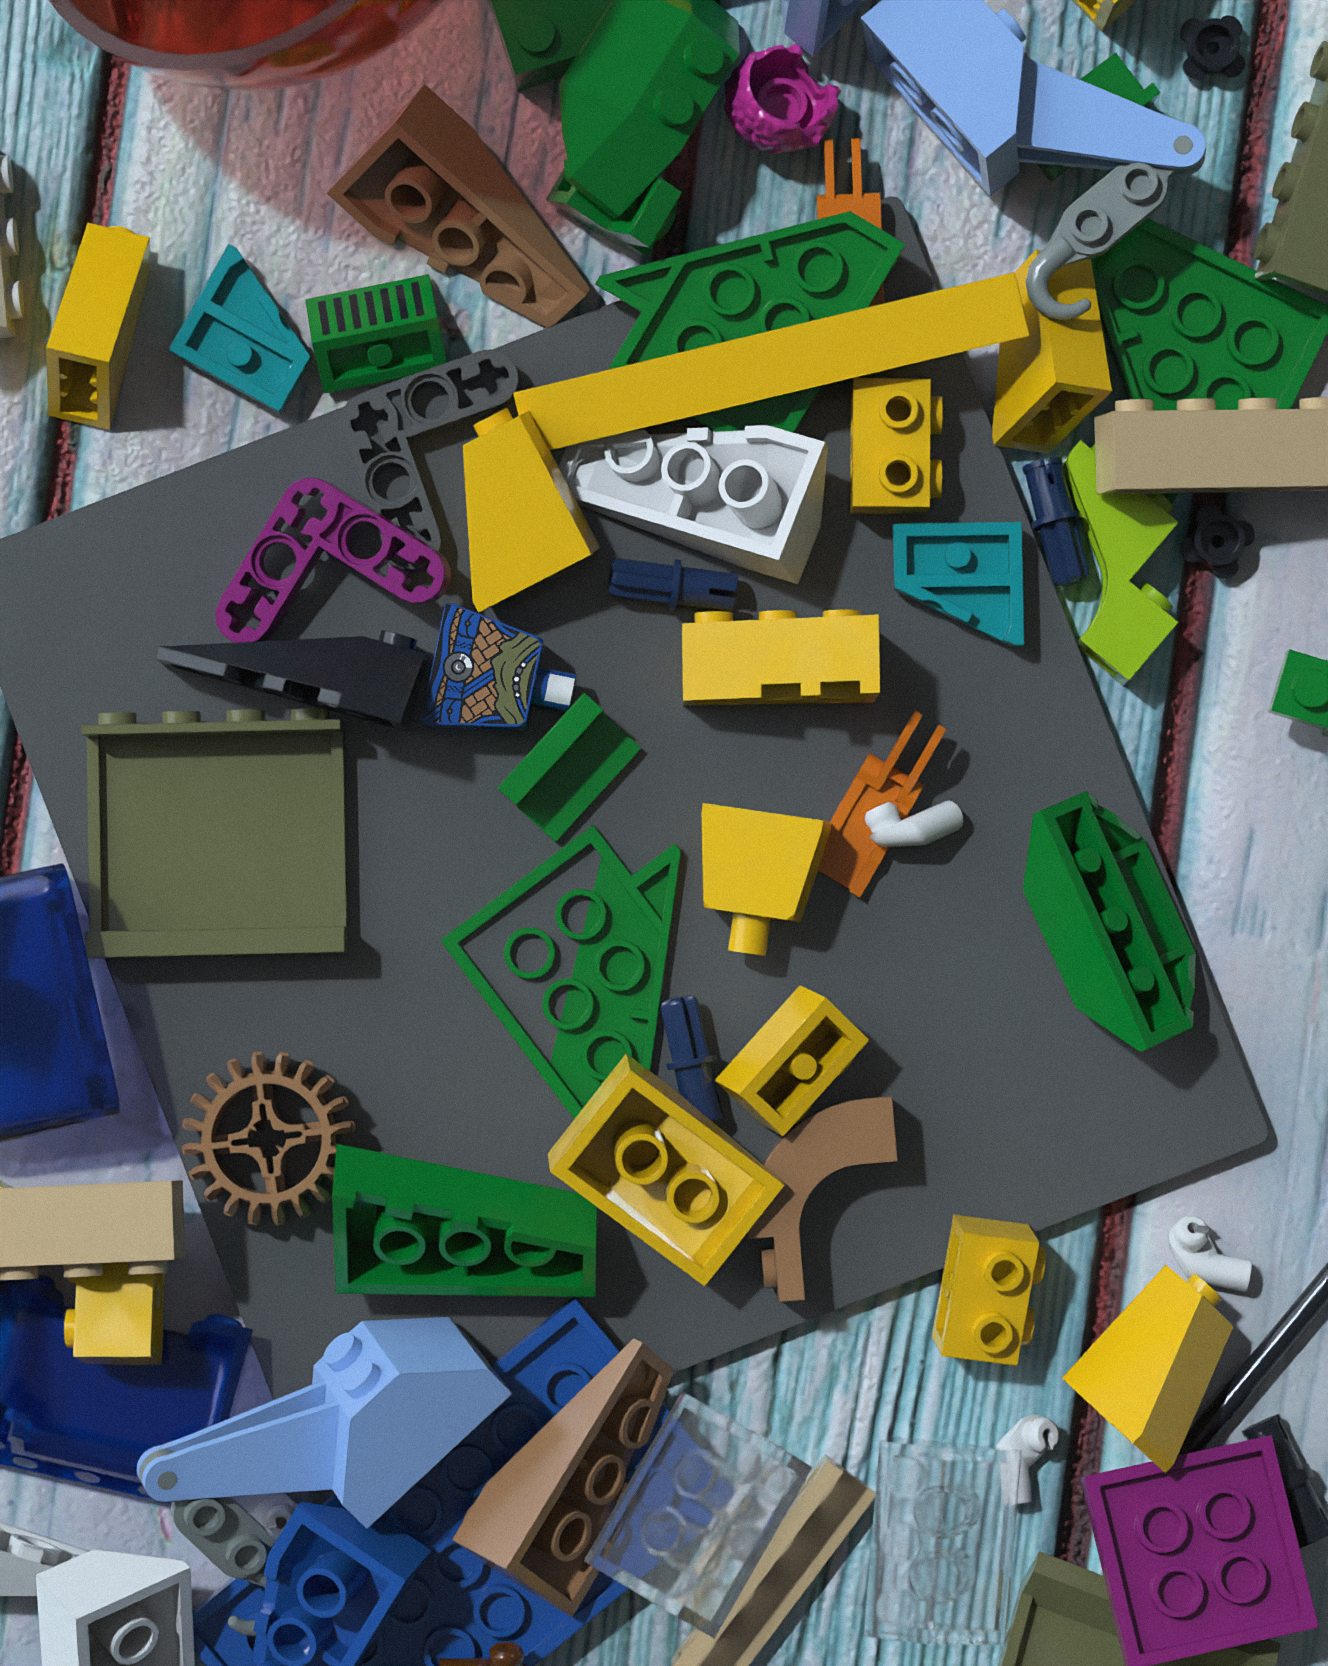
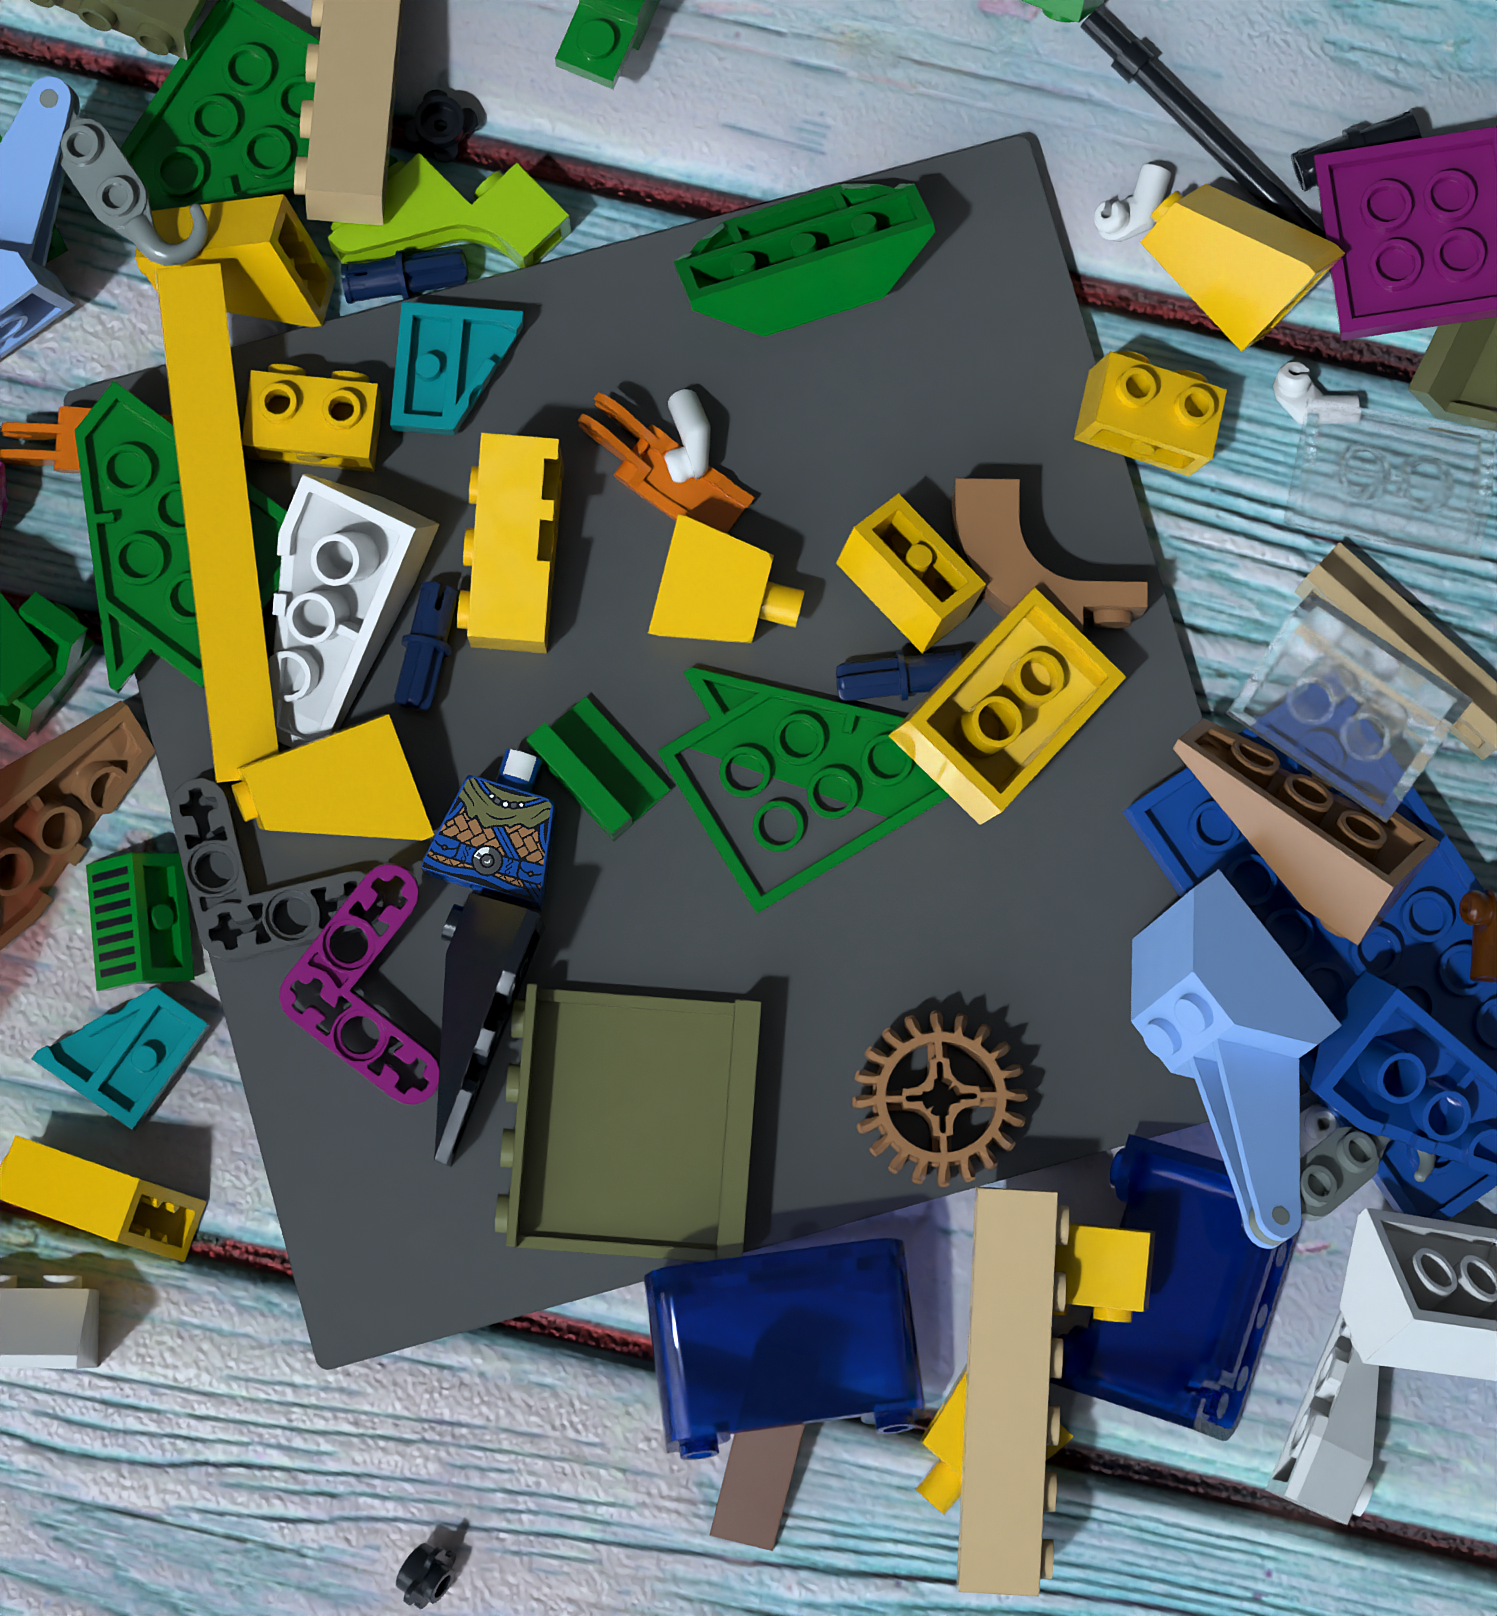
camera: 85 degrees left, 5 degrees down
(456, 1231) = (1051, 916): green wedge -> none

